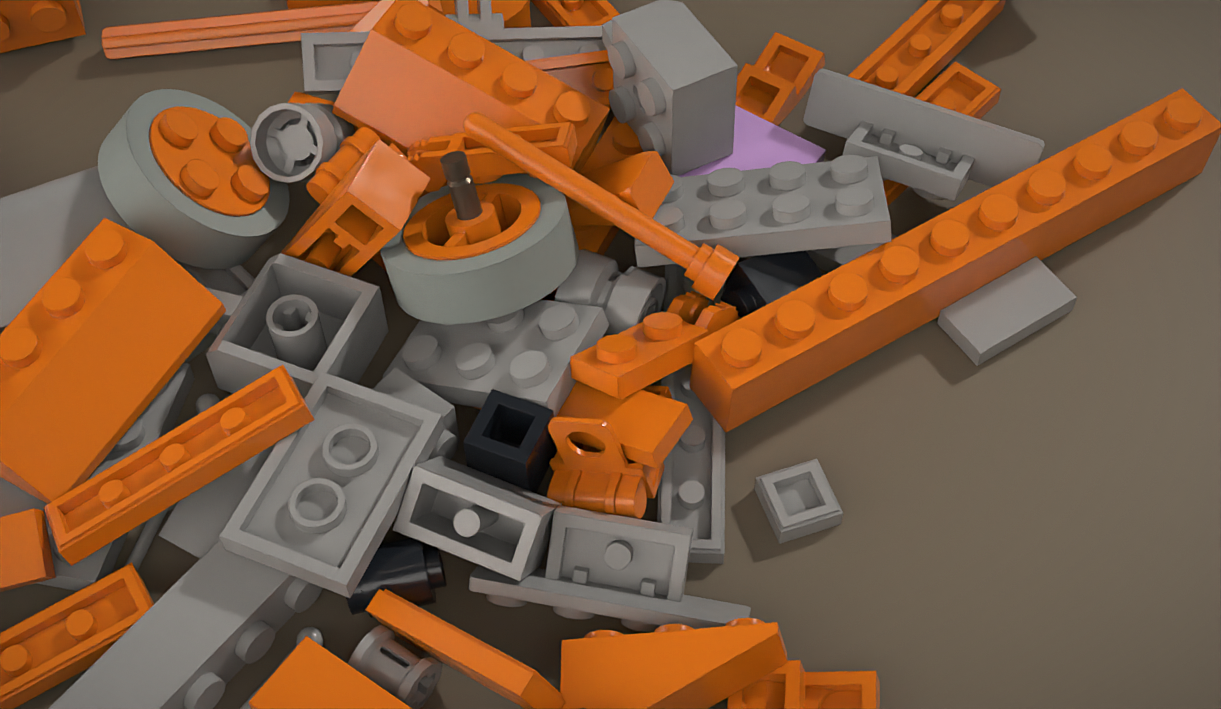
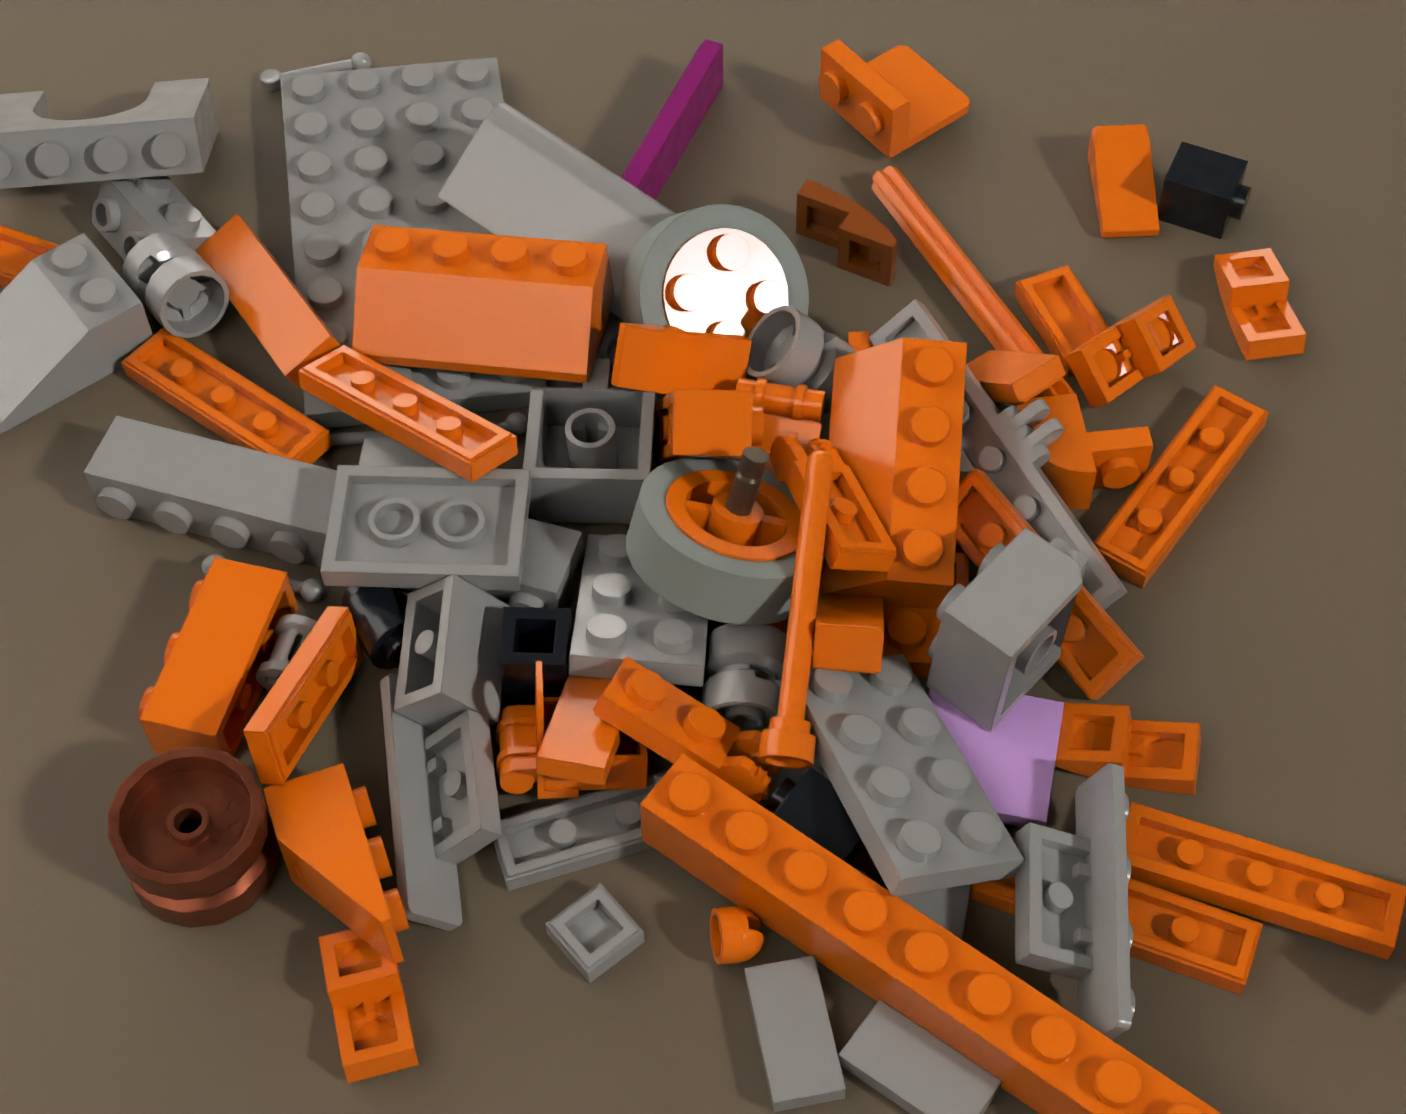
camera: 70 degrees right, 0 degrees up
(178, 67) = (861, 239): none -> dark orange slope
(263, 220) = (670, 358): none -> orange slope
(843, 409) = (734, 934): none -> orange hinge
(946, 382) = (794, 1034): none -> light grey tile

